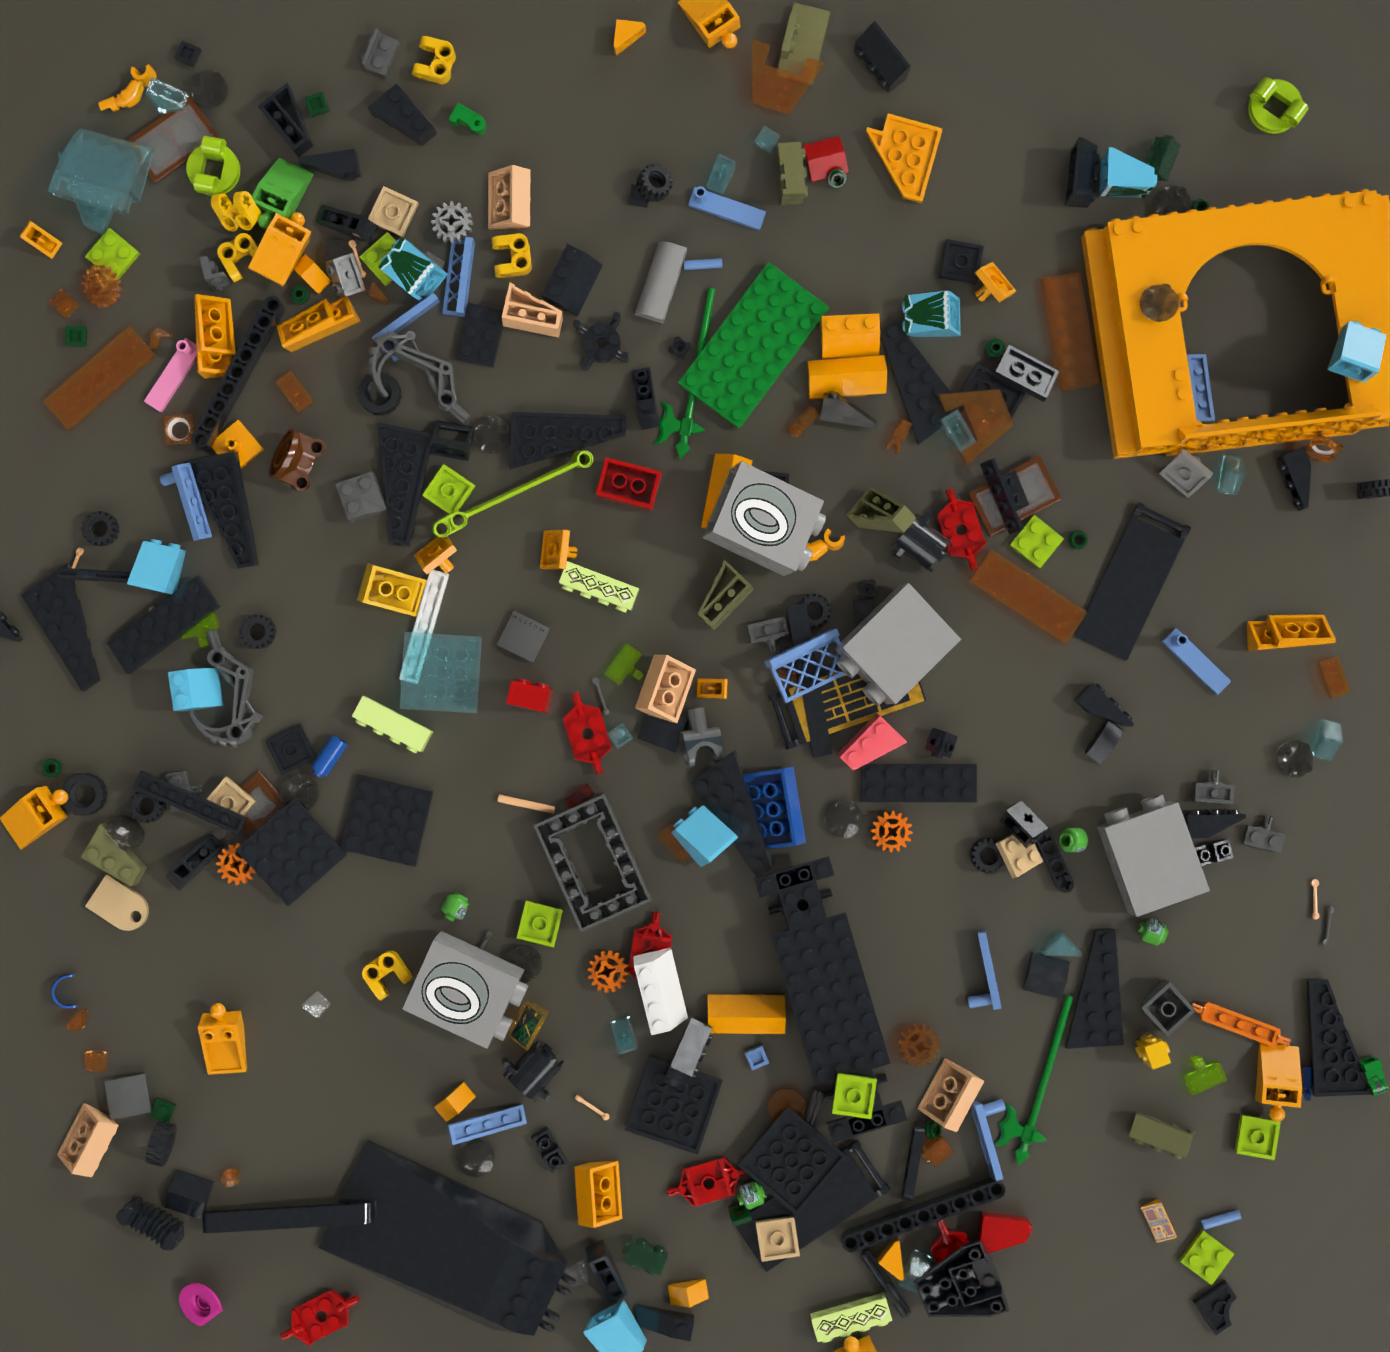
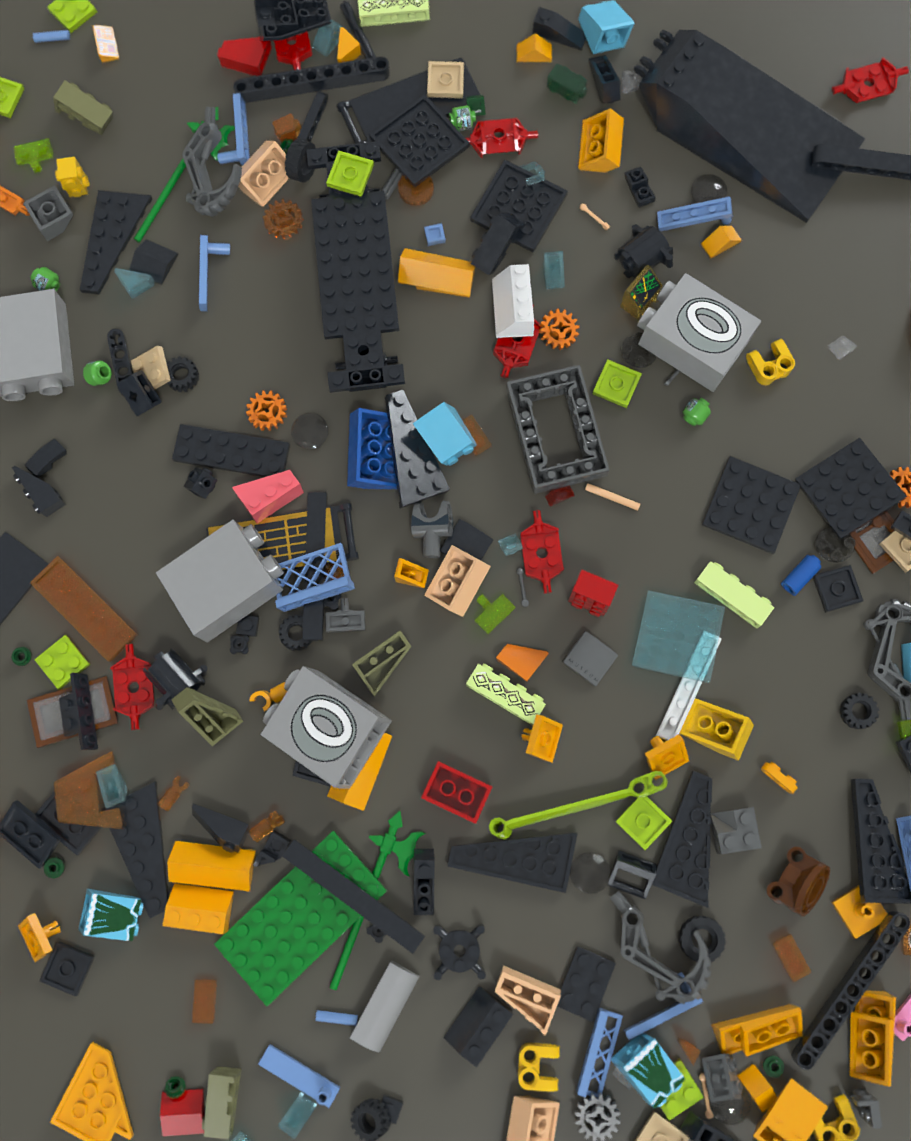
camera: 165 degrees left, 10 degrees down
(333, 559) = (785, 782): none -> light orange plate
(589, 623) = (521, 660): none -> orange slope
(659, 1149) = (540, 171): none -> clear light blue piece
(707, 371) = (353, 896): none -> black tile
(792, 402) = (273, 849): none -> black slope
(827, 256) = (204, 1001): none -> clear orange plate
(916, 1110) = (296, 161): none -> black tyre
(1027, 1098) = (195, 154): none -> dark grey piece

